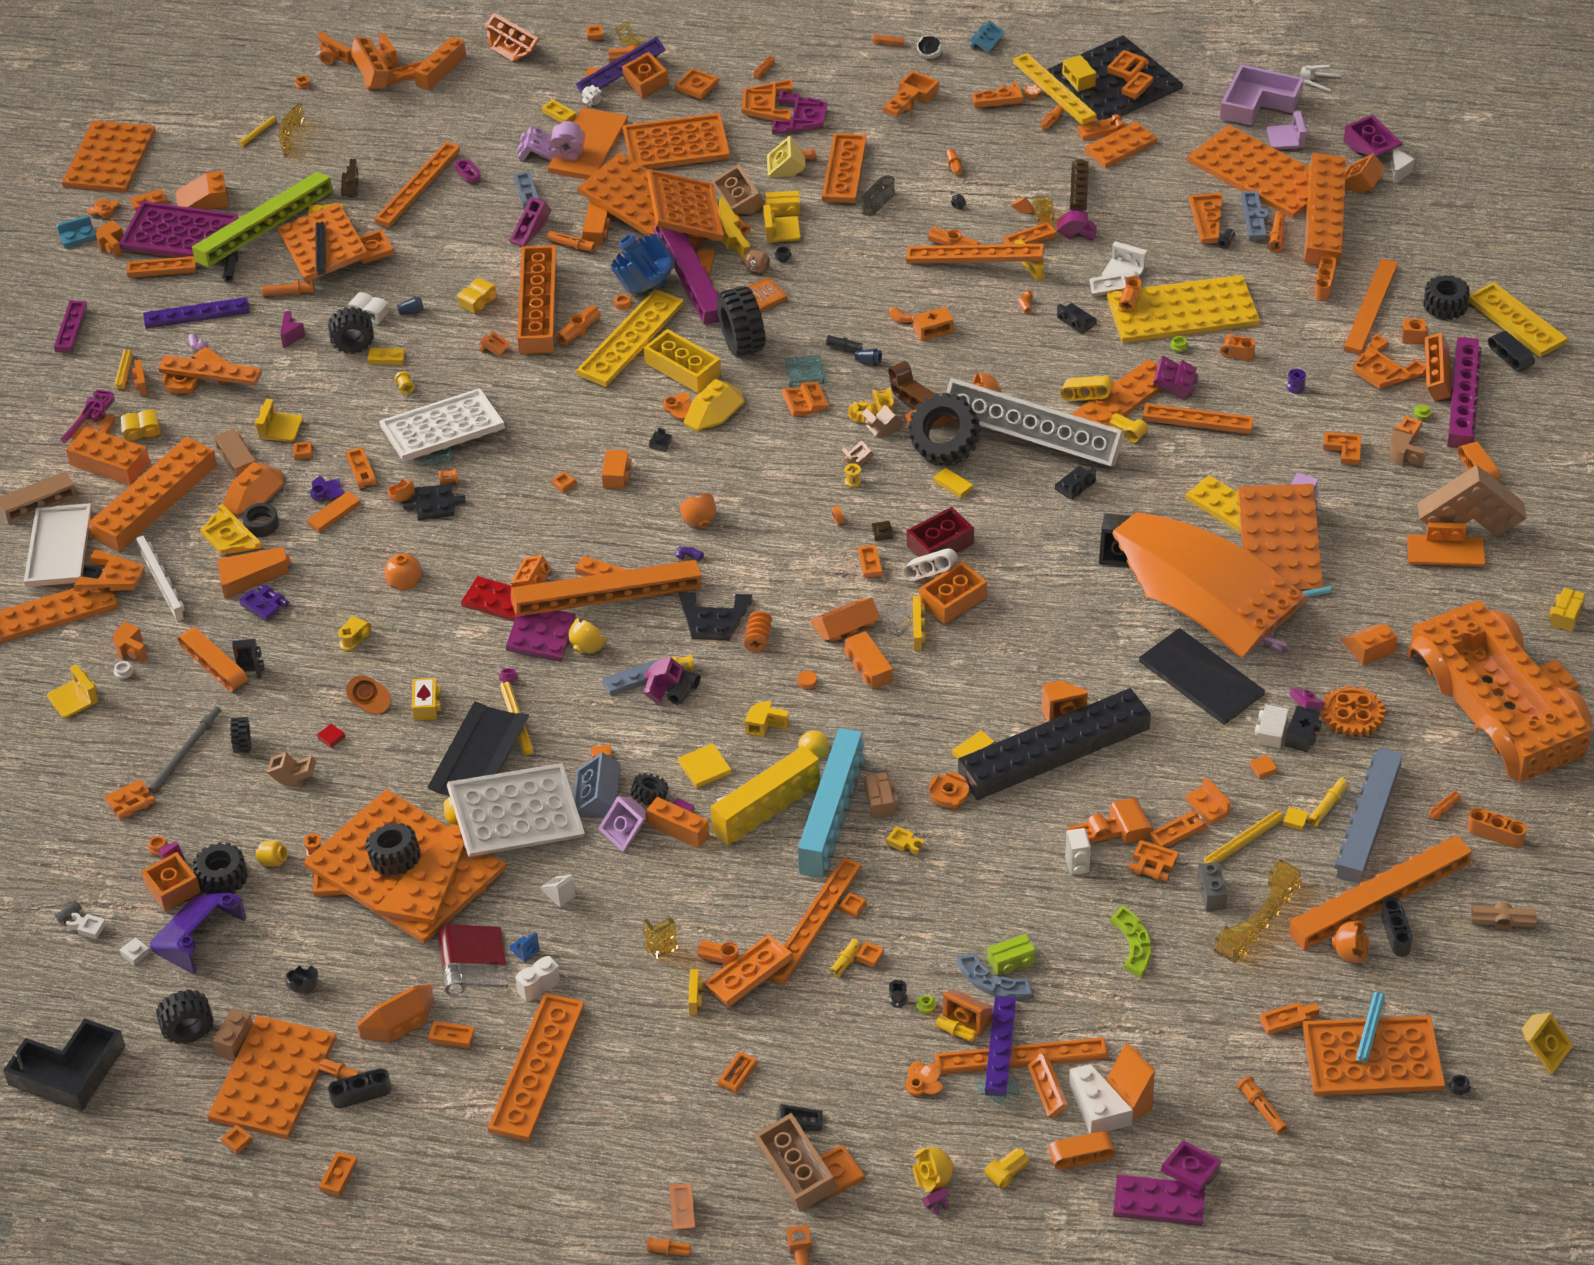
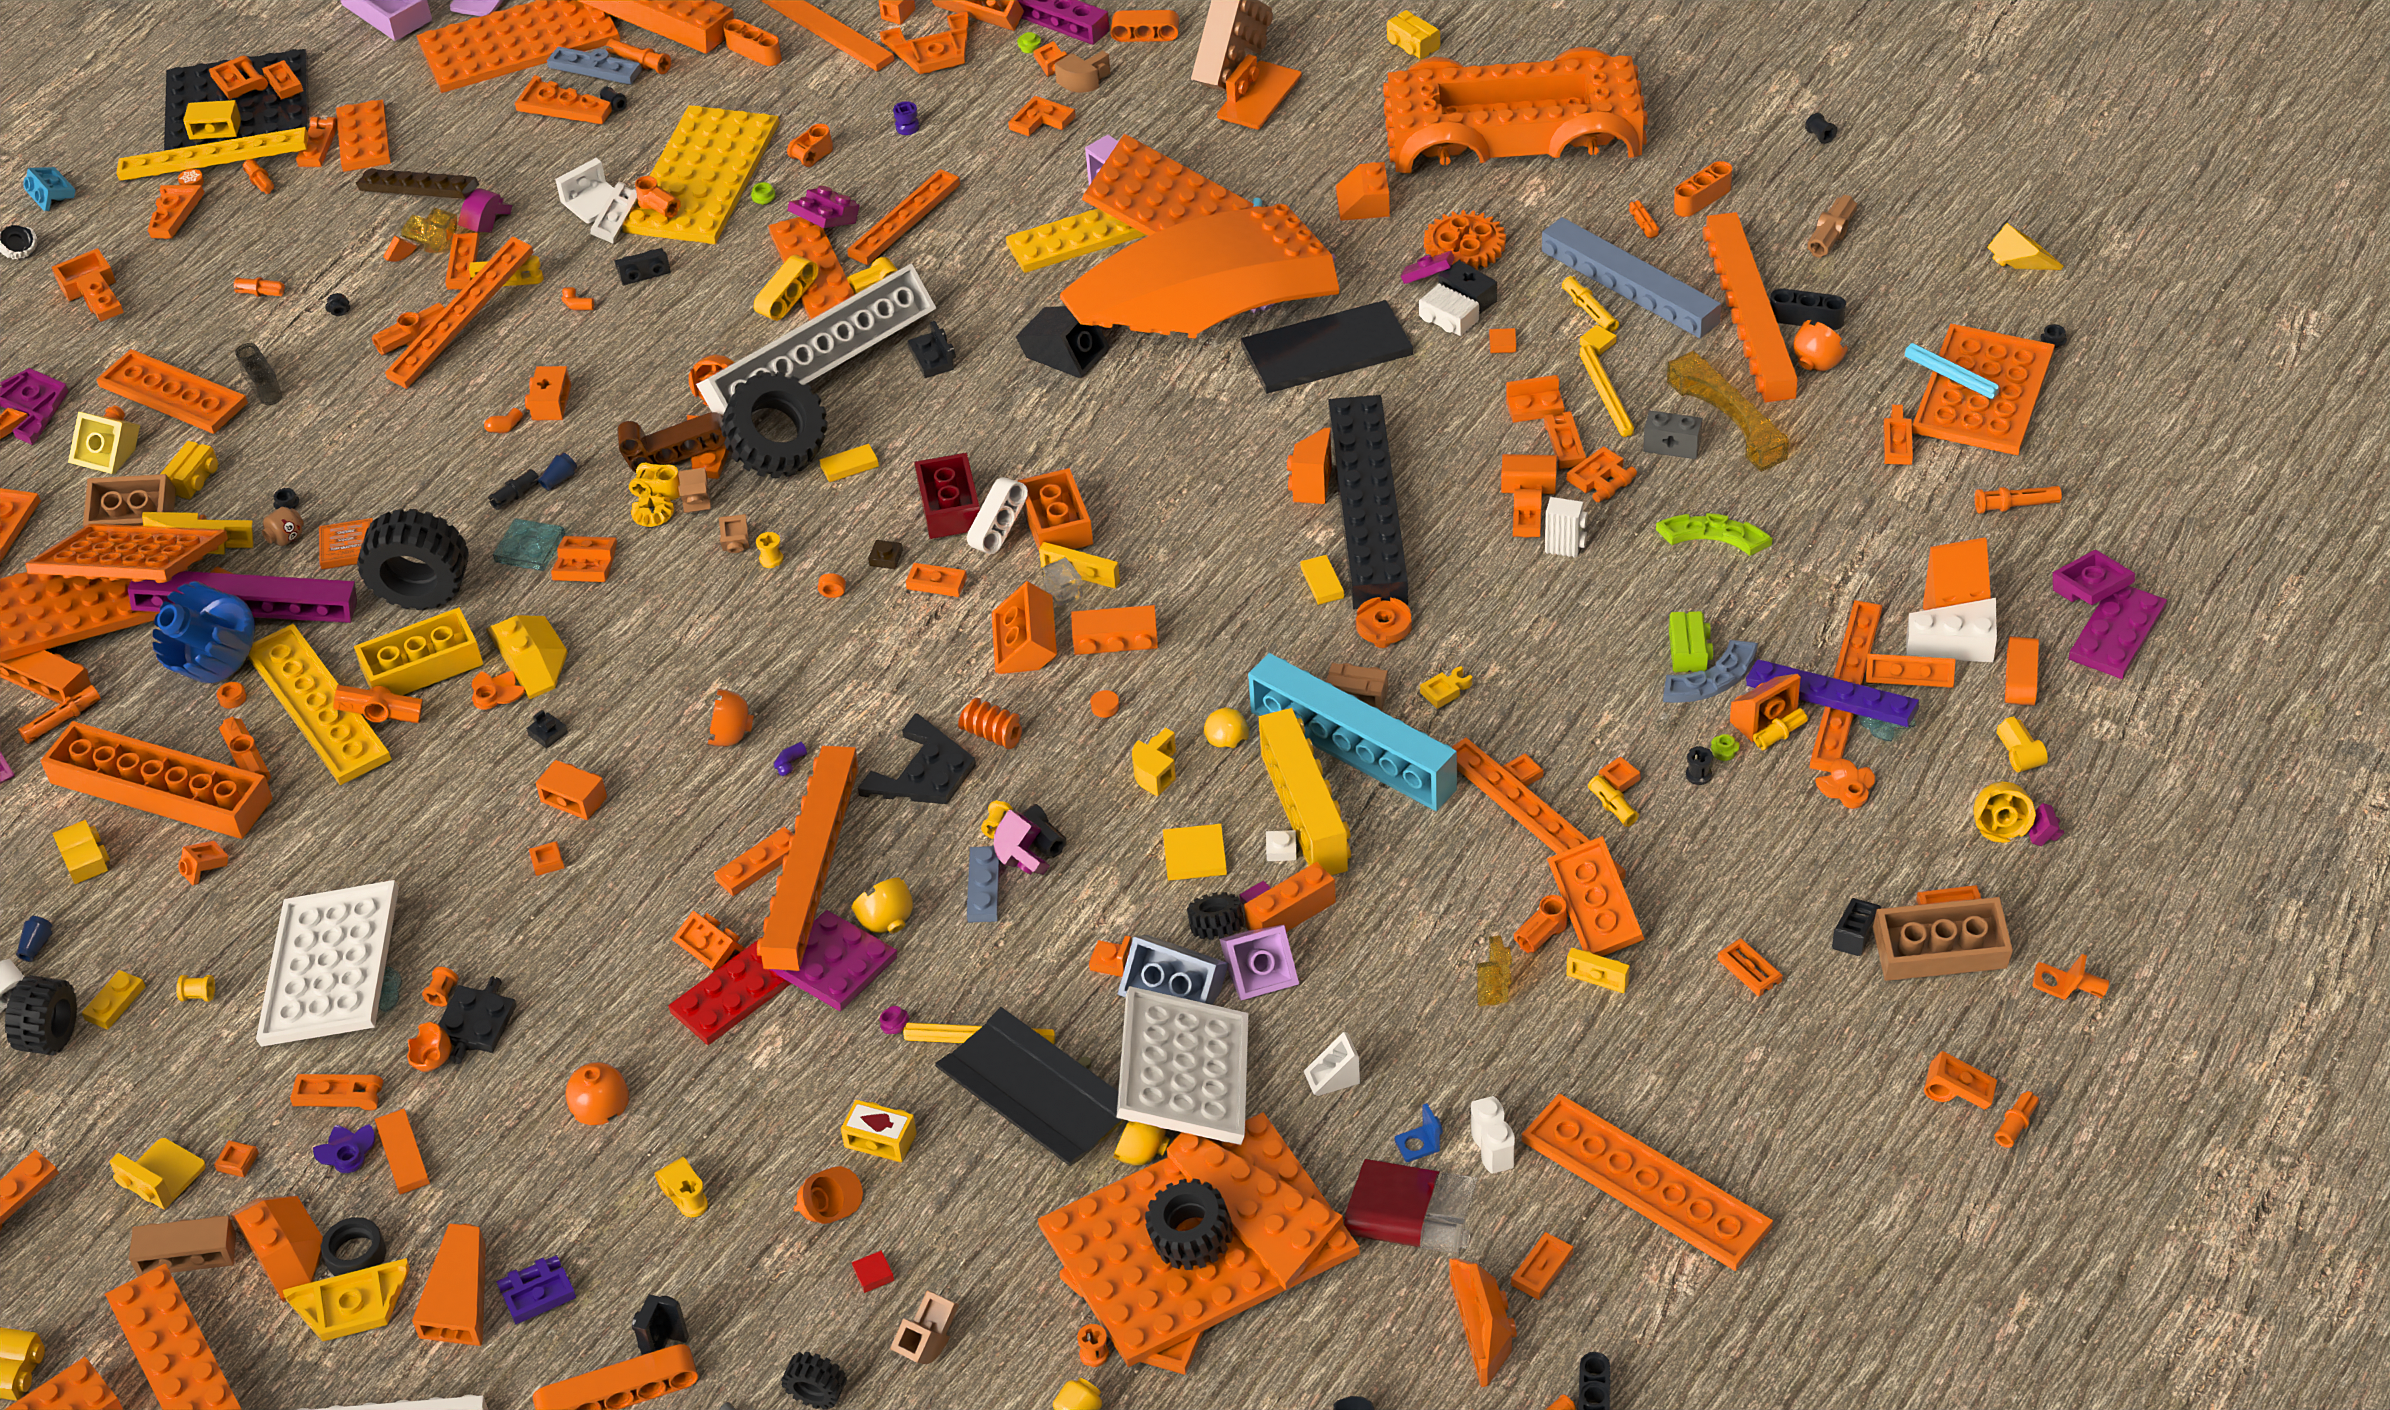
camera: 65 degrees left, 0 degrees up
(636, 360) = (378, 704): none -> orange piece
(781, 228) = (231, 487): yellow bracket -> none

